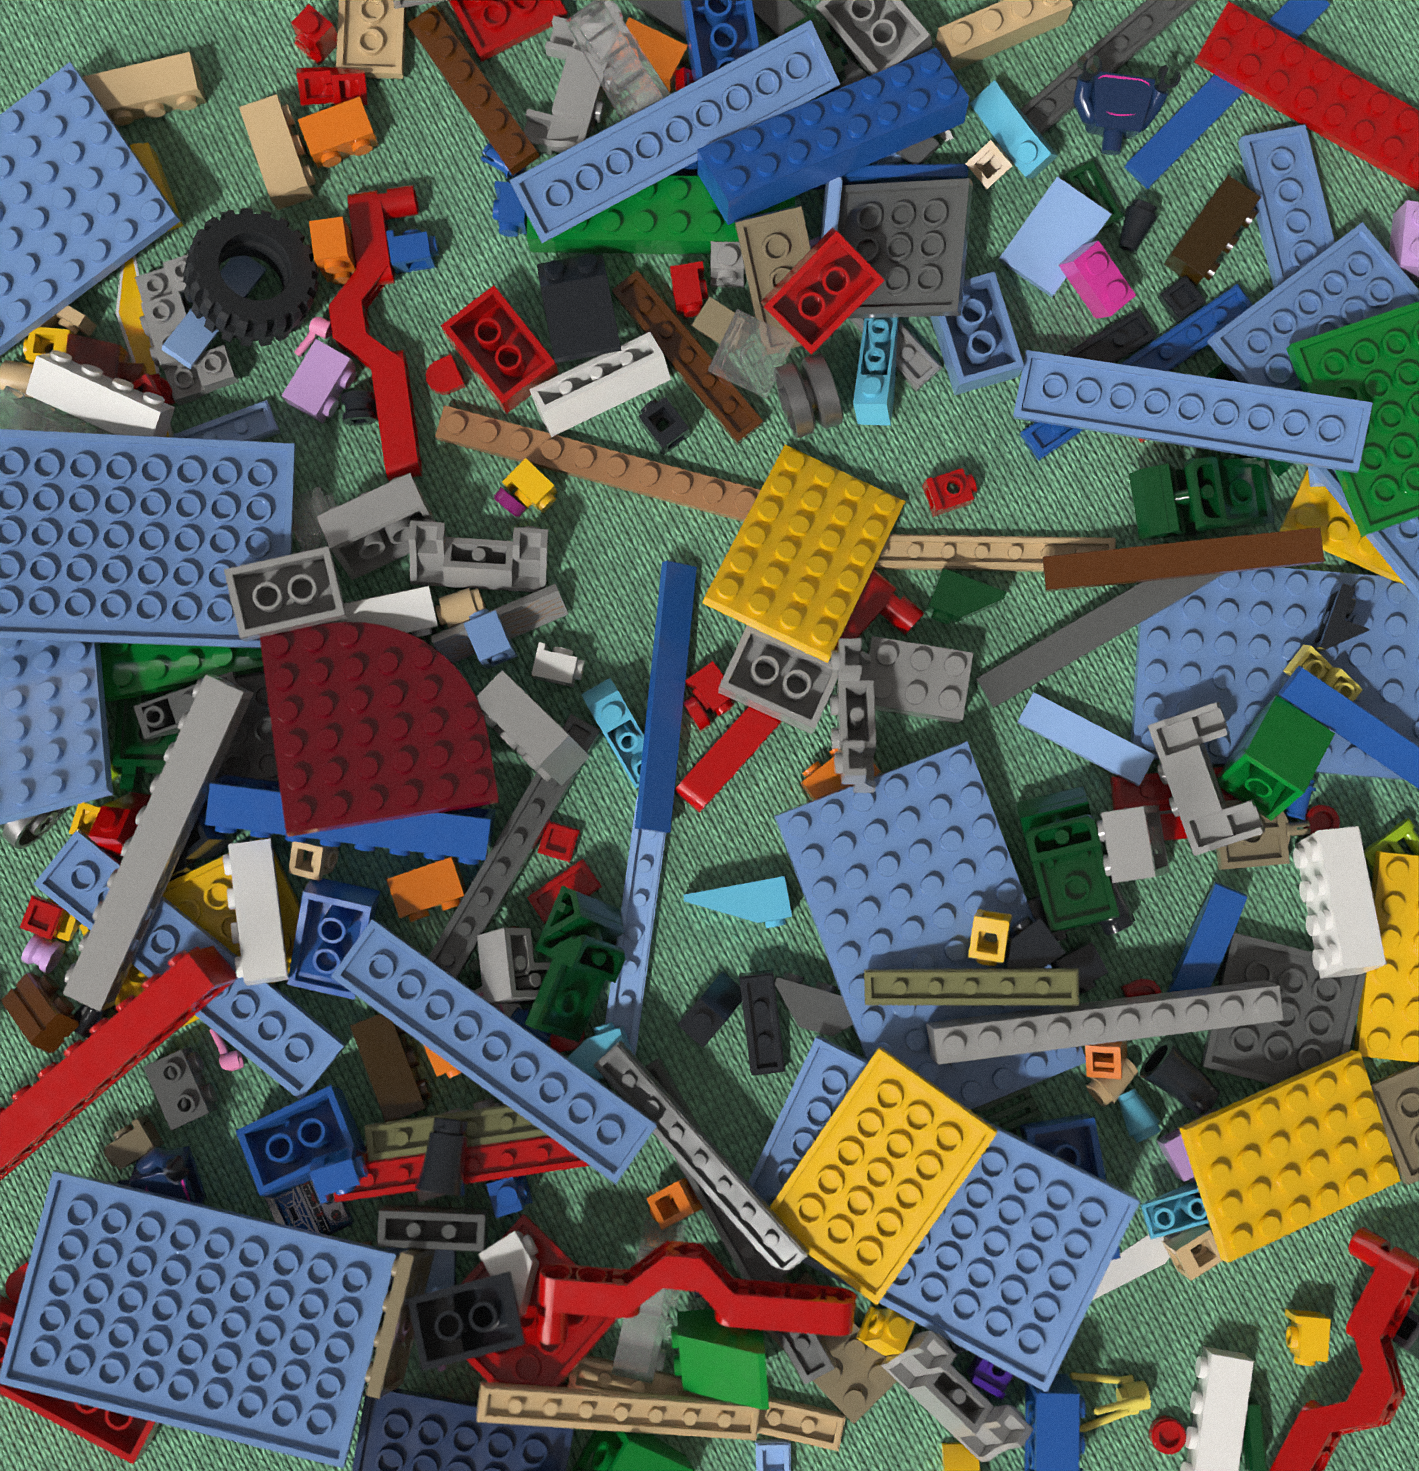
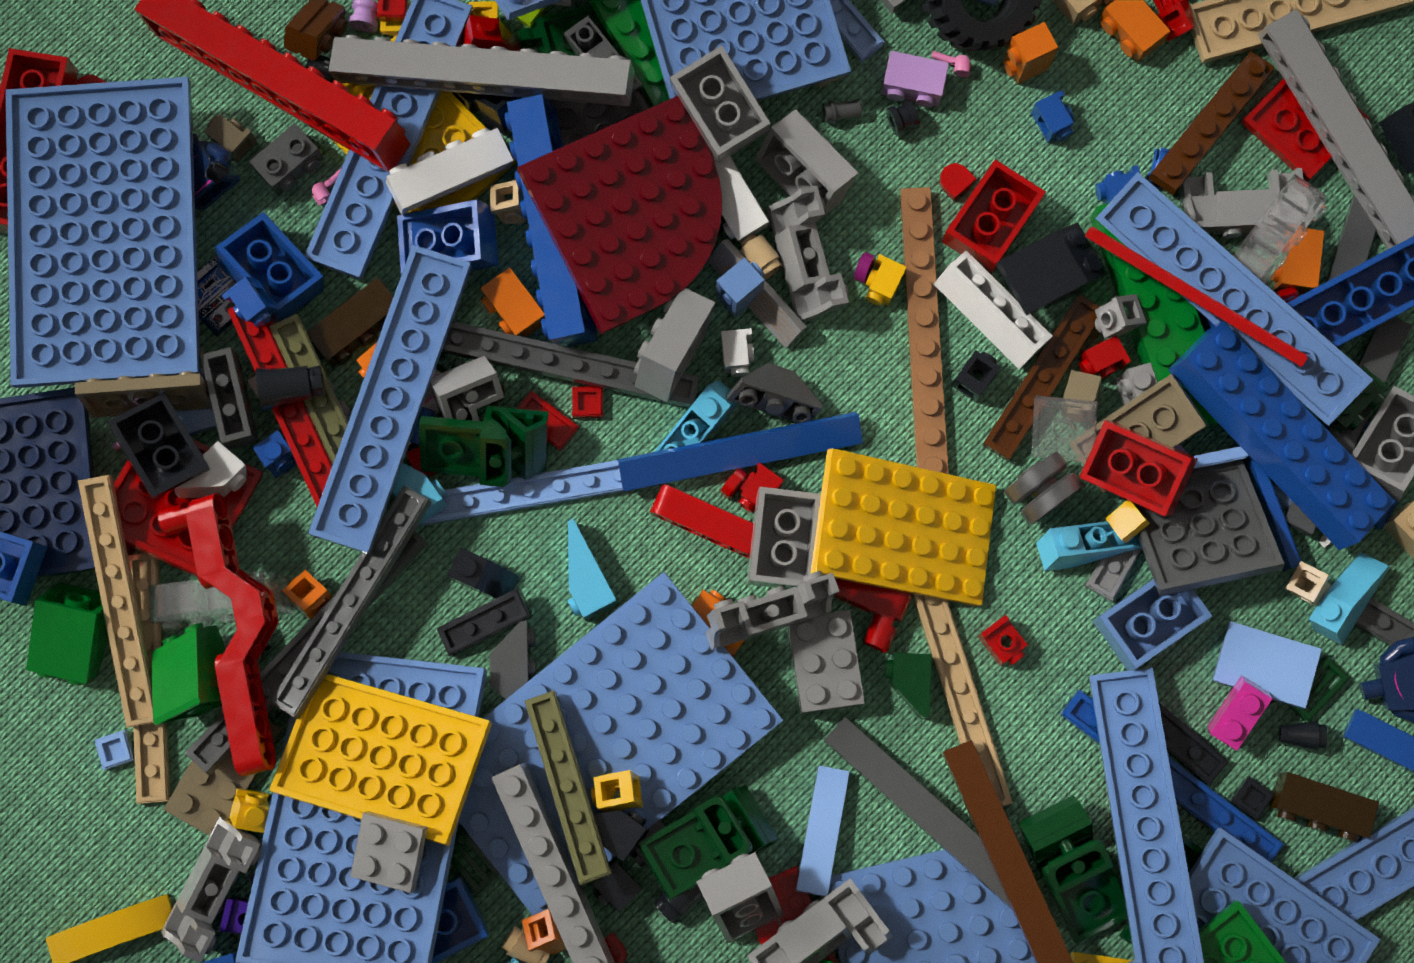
camera: 70 degrees right, 5 degrees down
(305, 522) = (803, 101): clear slope -> none
(328, 469) = (842, 110): none -> dark grey pin
(351, 326) = (968, 90): red beam -> none
(617, 637) = (777, 393): none -> dark grey slope
(652, 263) = (1112, 317): none -> light grey brick
(663, 166) = (1196, 296): none -> red tile
(871, 322) = (1127, 520): none -> yellow tile
(985, 1195) = (389, 851): none -> light grey plate

